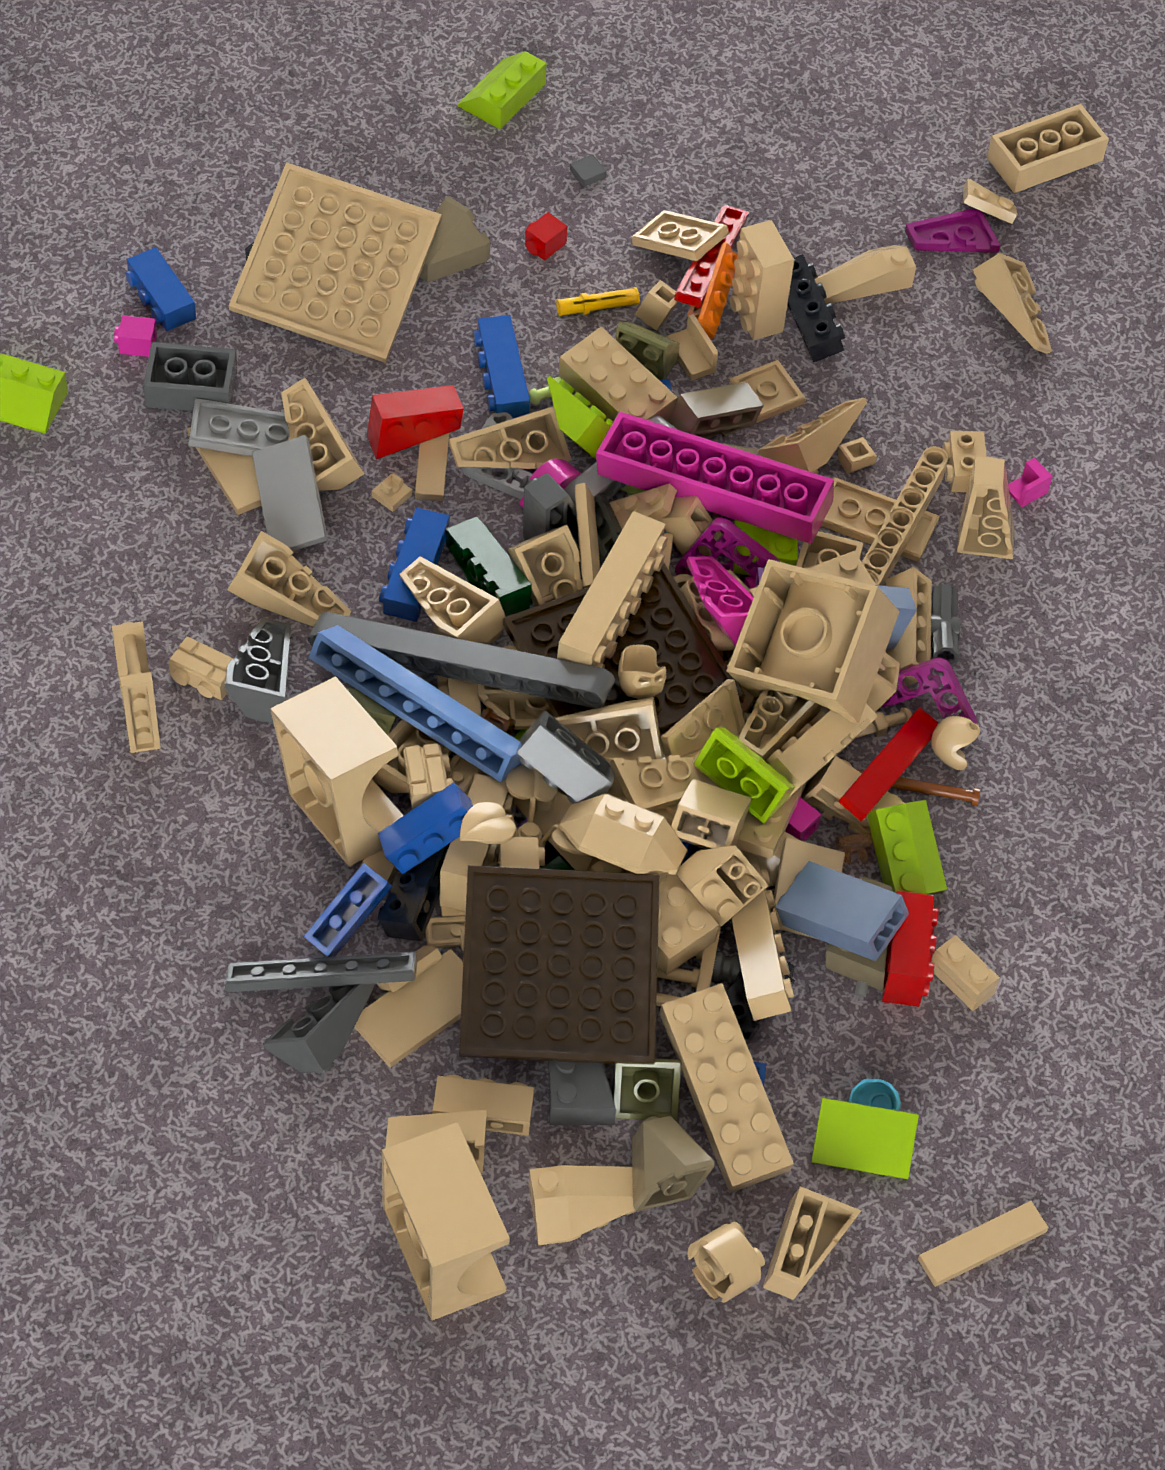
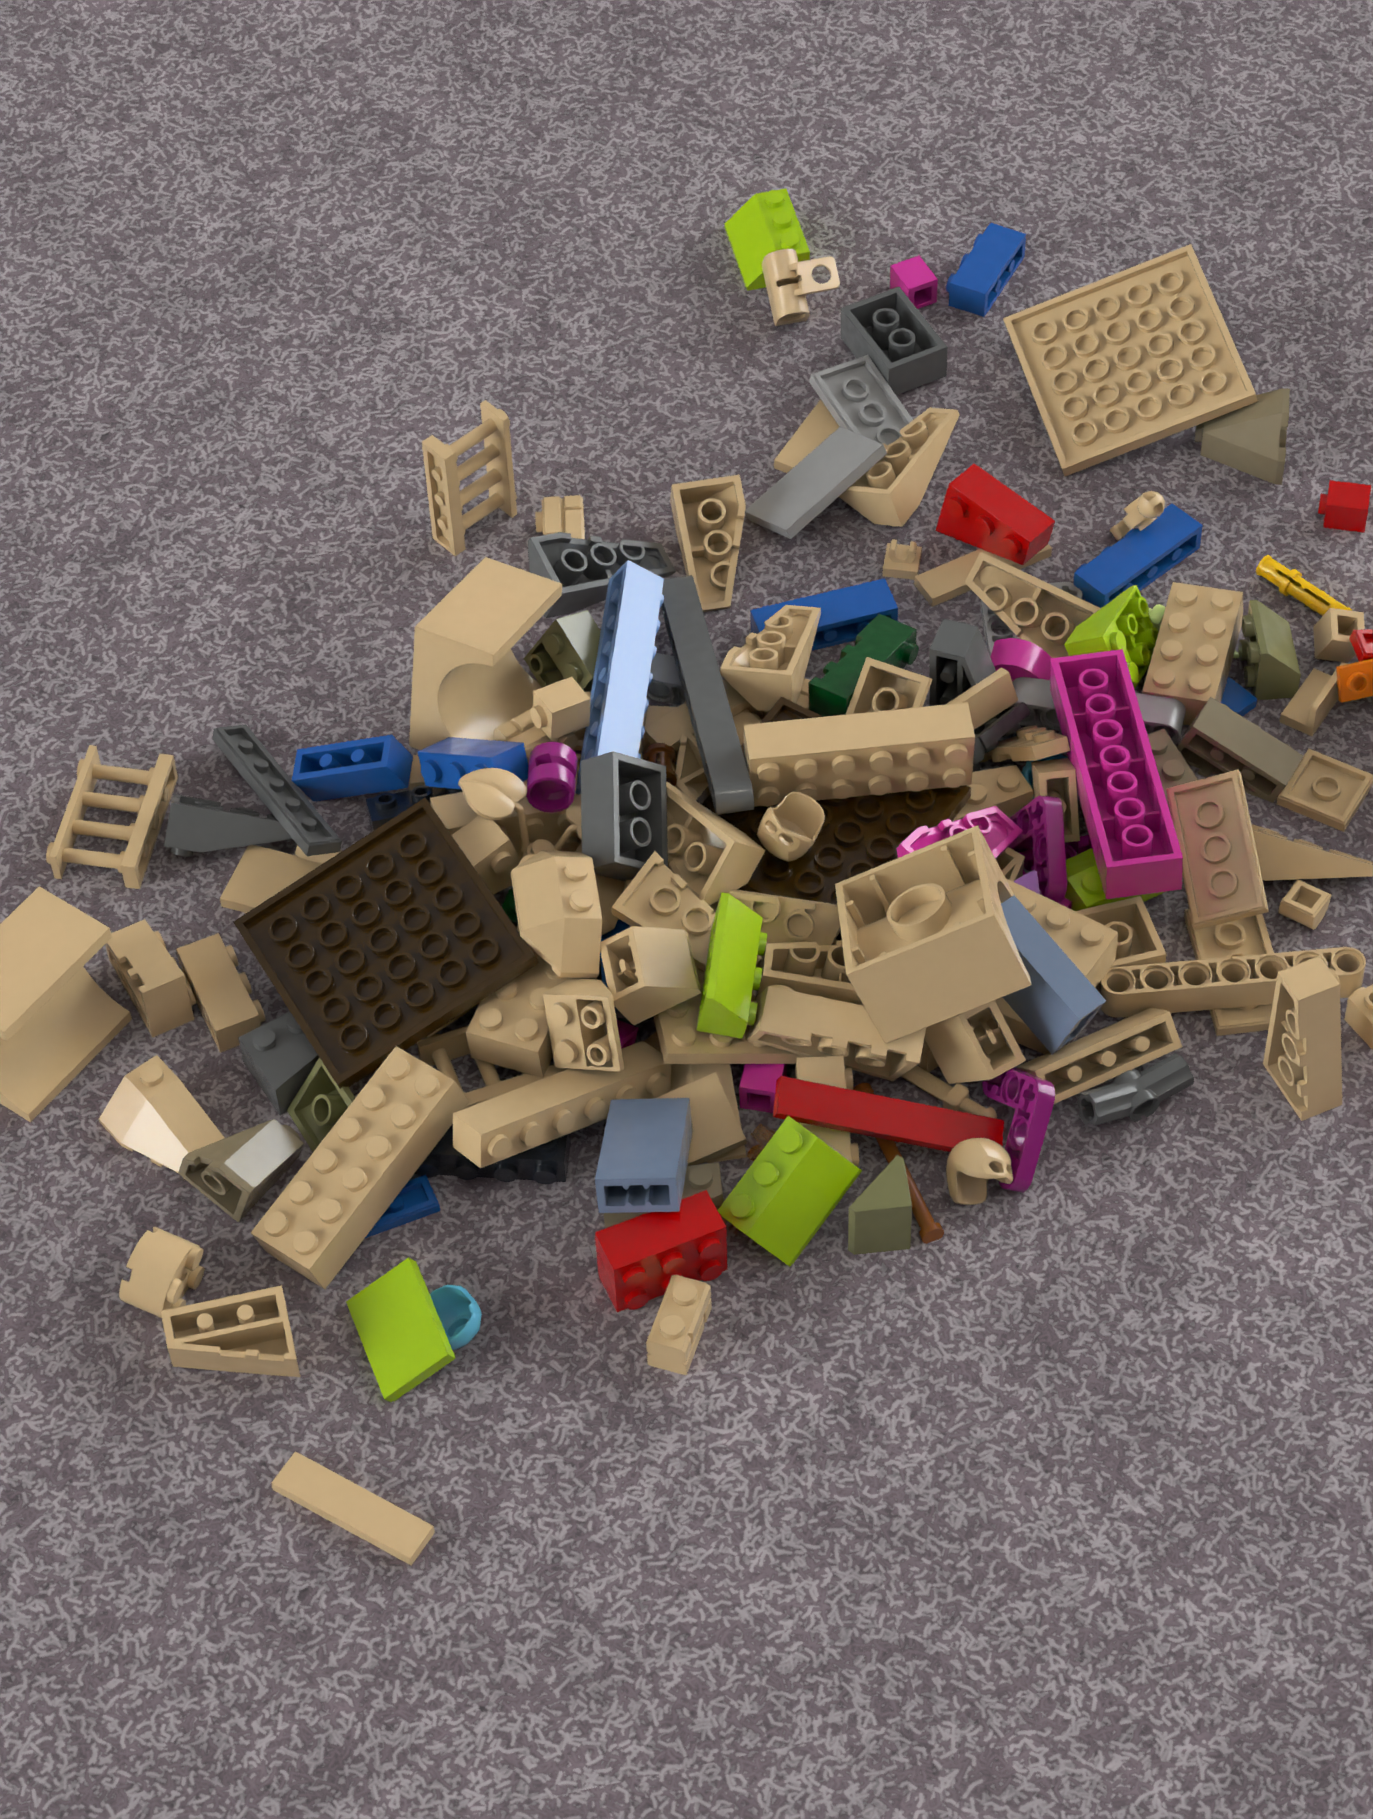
camera: 65 degrees right, 5 degrees down
(88, 402) = (791, 281): none -> tan piece
(266, 1064) = (140, 835): none -> tan fence
(434, 744) = (560, 708): none -> tan brick
(481, 339) = (1140, 513): none -> tan piece
(488, 784) = (551, 777): none -> magenta wheel
(789, 447) = (1217, 850): none -> tan tile
(955, 804) = (882, 1213): none -> olive slope

